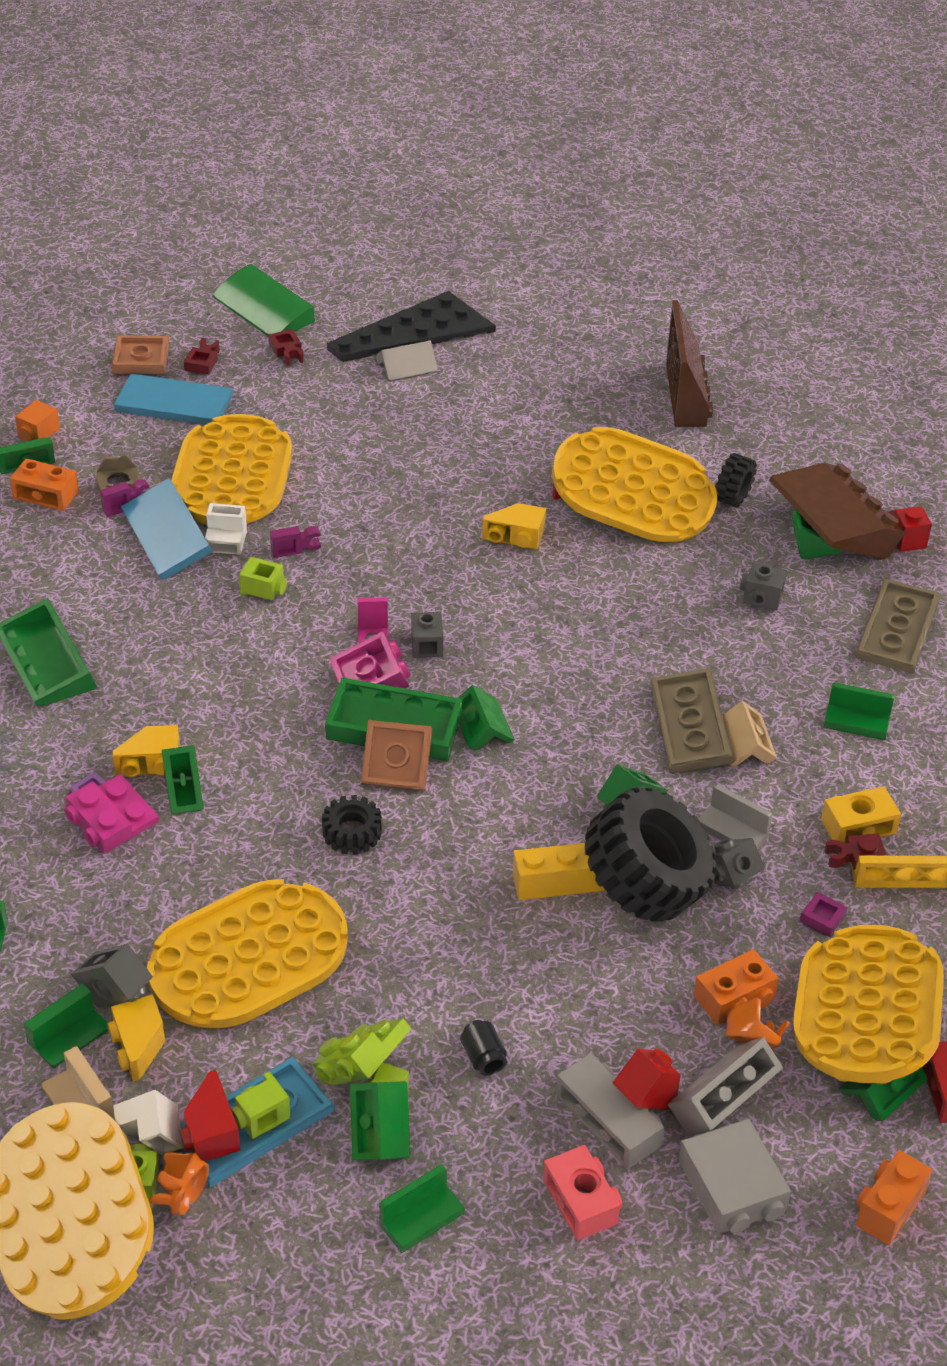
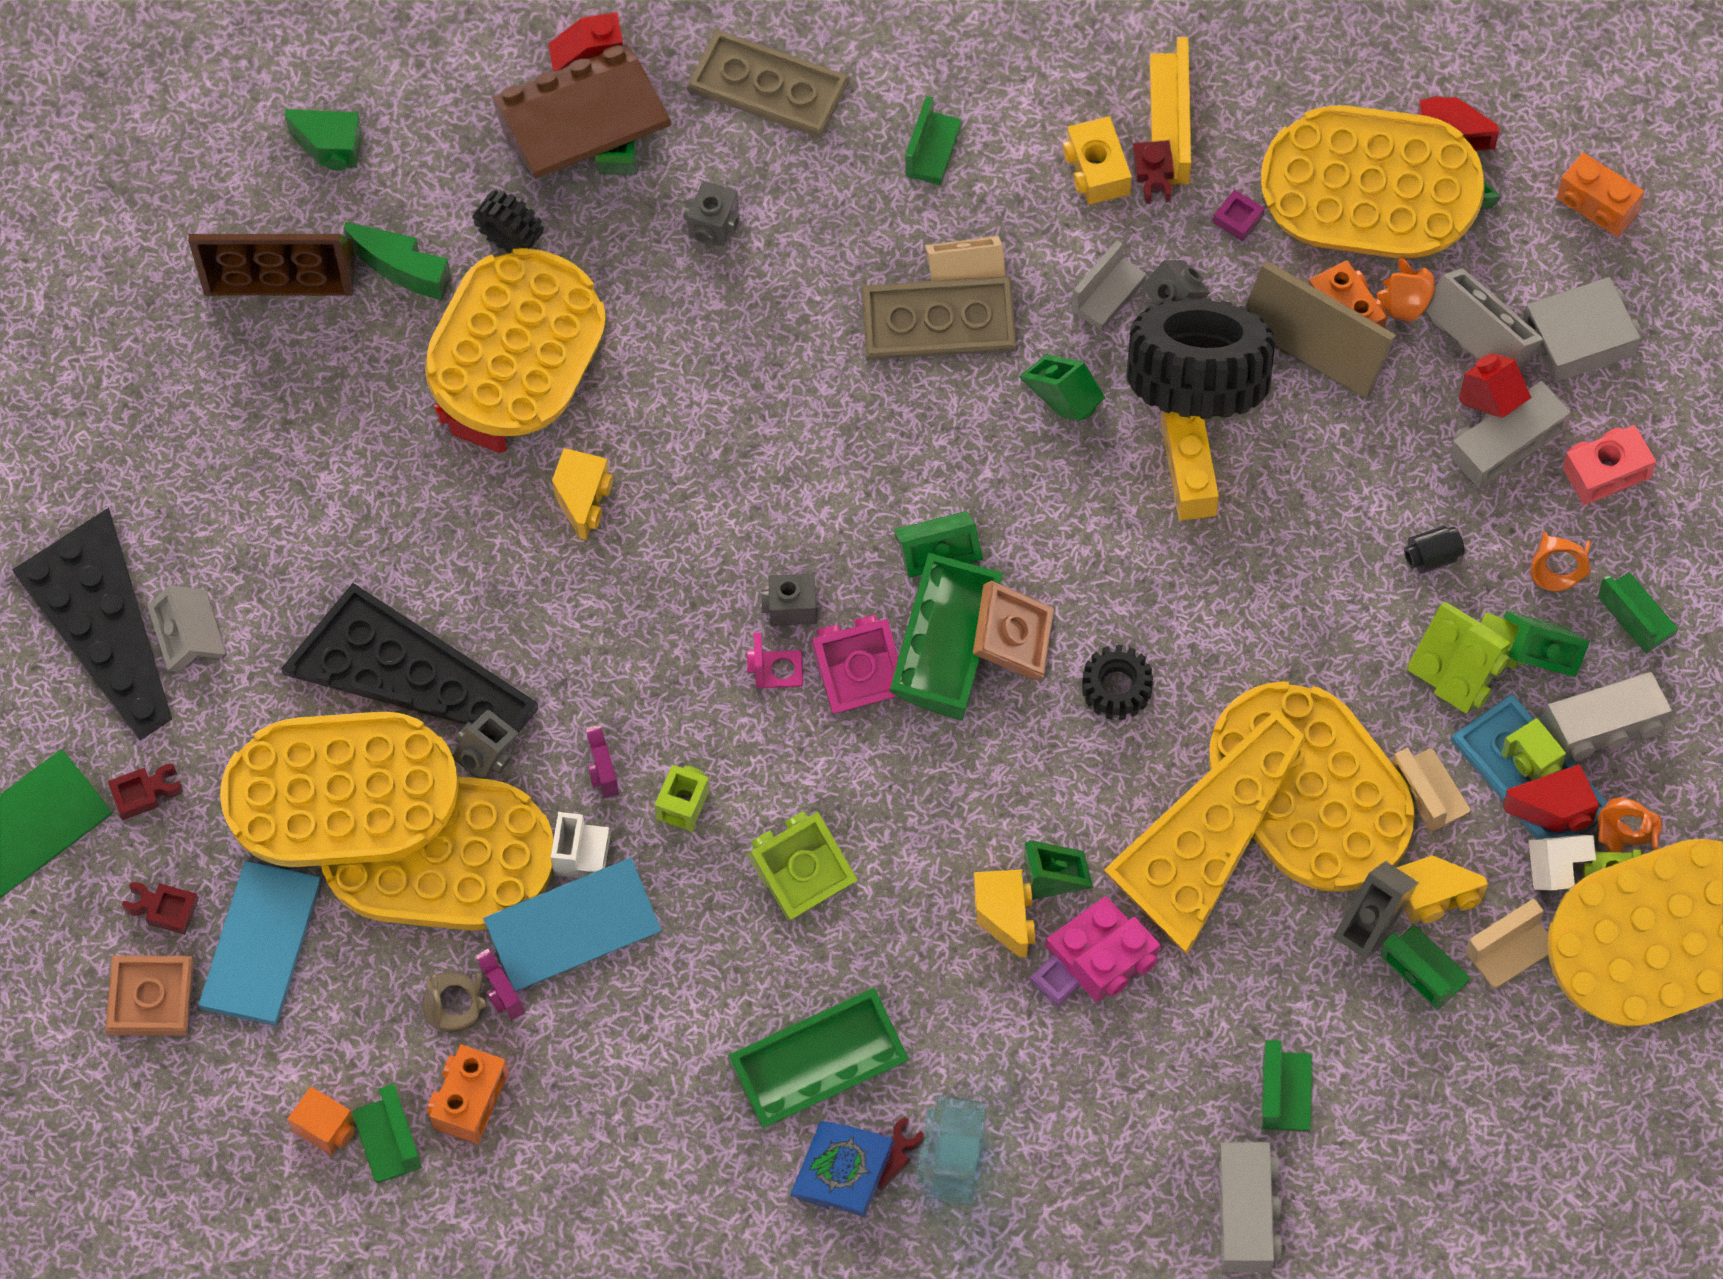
camera: 85 degrees left, 20 degrees up
(201, 868) = (1193, 848): none -> yellow wing
(202, 639) = (800, 864): none -> lime plate
(240, 1036) = (1431, 788): none -> tan panel
(274, 416) = (339, 789): none -> yellow plate
(298, 1171) = (1607, 716): none -> light grey brick
(305, 480) = (485, 745): none -> dark grey brick
(374, 451) = (390, 659): none -> black wing
(474, 1128) = (1550, 581): none -> orange piece
(701, 955) = (1320, 329): none -> dark tan tile
(702, 434) = (400, 260): none -> green slope
(797, 403) = (327, 136): none -> green slope

